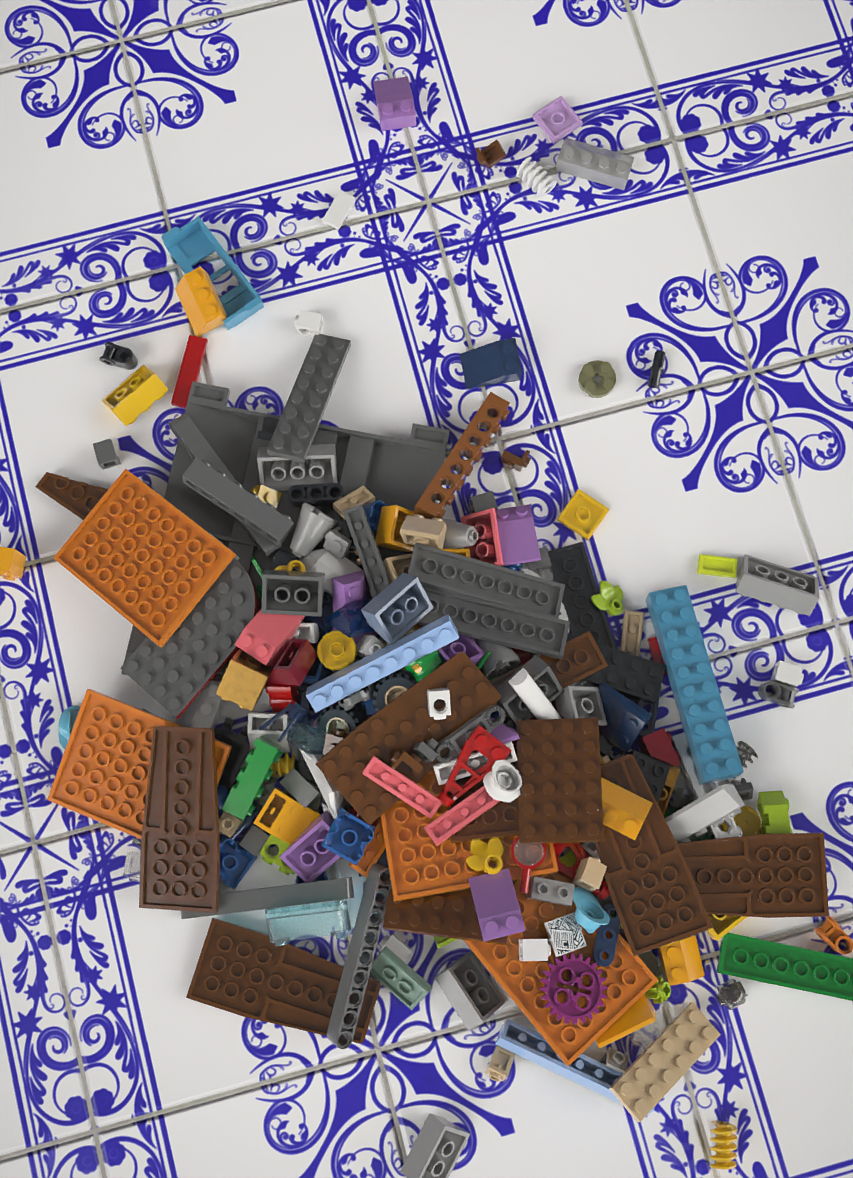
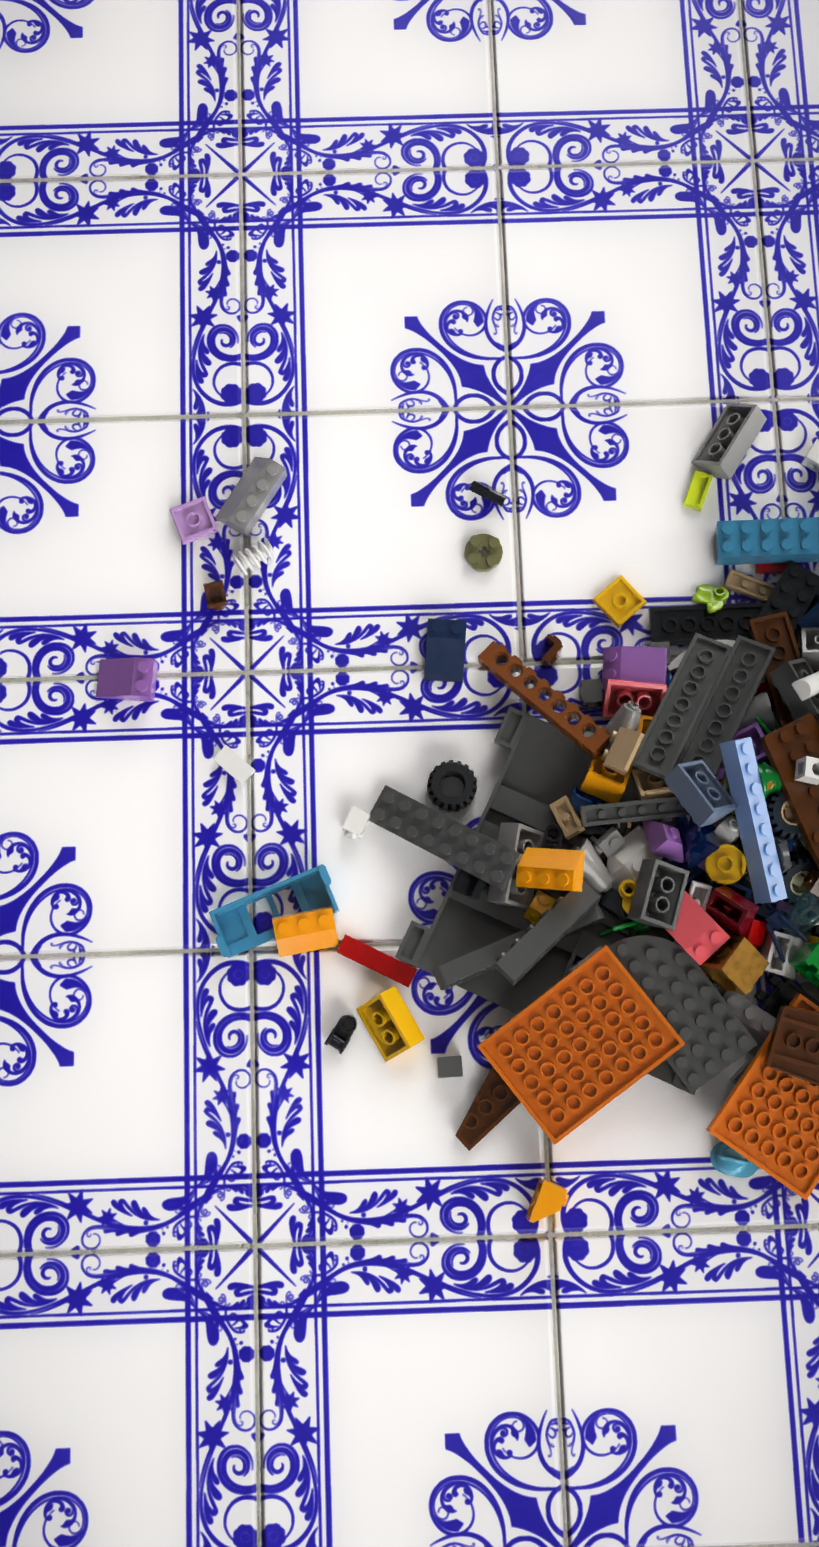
camera: 80 degrees left, 0 degrees up
(294, 490) = (551, 869): none -> light orange slope
(362, 383) = (457, 770): none -> black tyre

